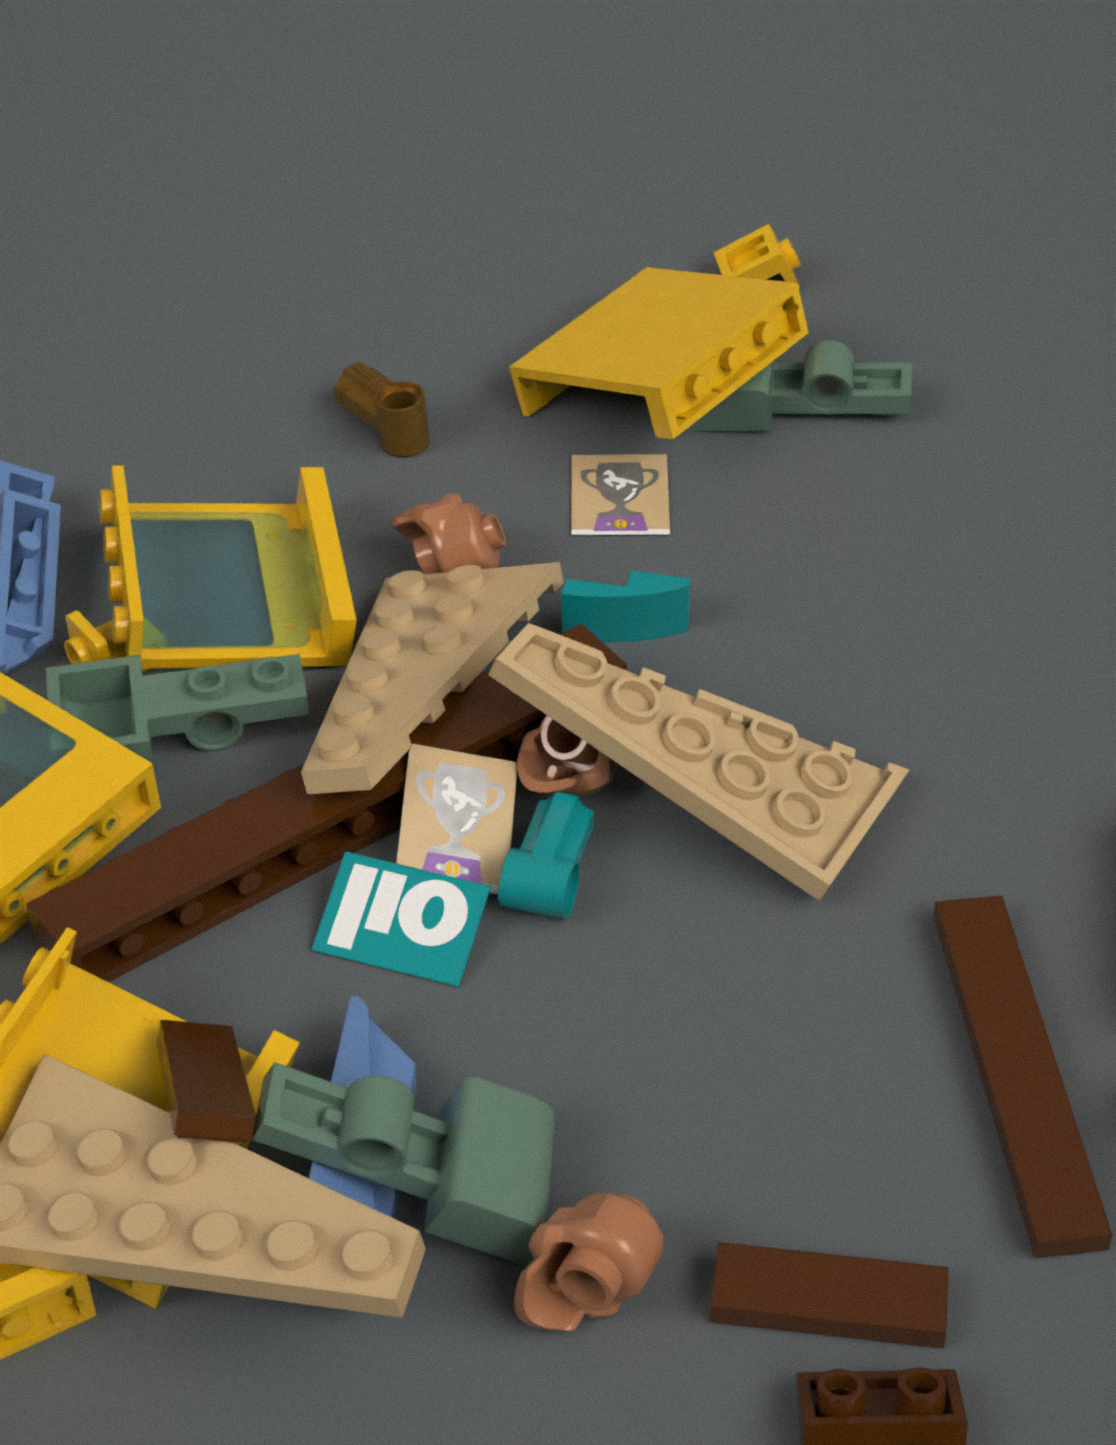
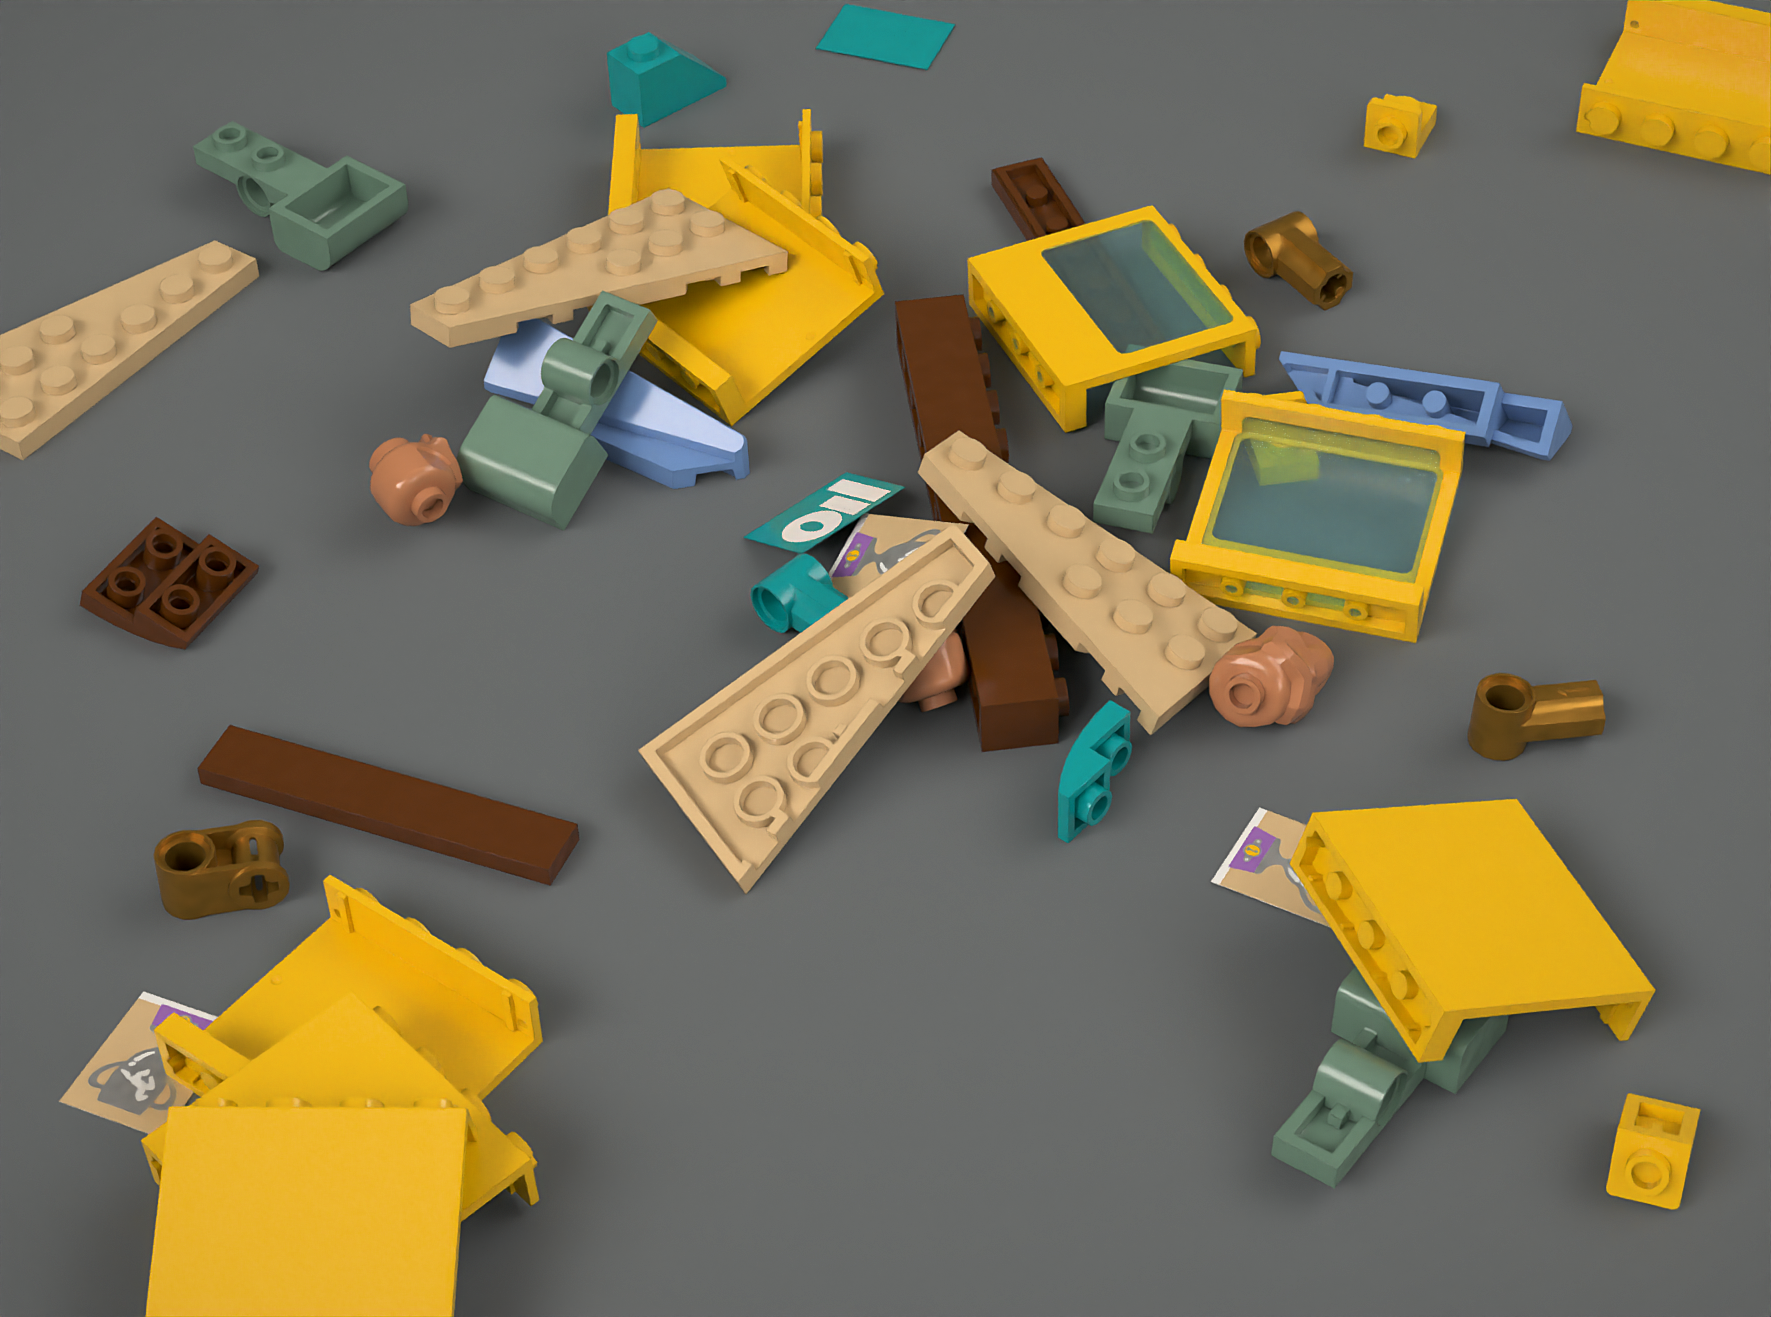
camera: 120 degrees right, 0 degrees up
(205, 1082) = (701, 313): reddish brown tile -> none
(830, 1295) = (299, 611): reddish brown tile -> none

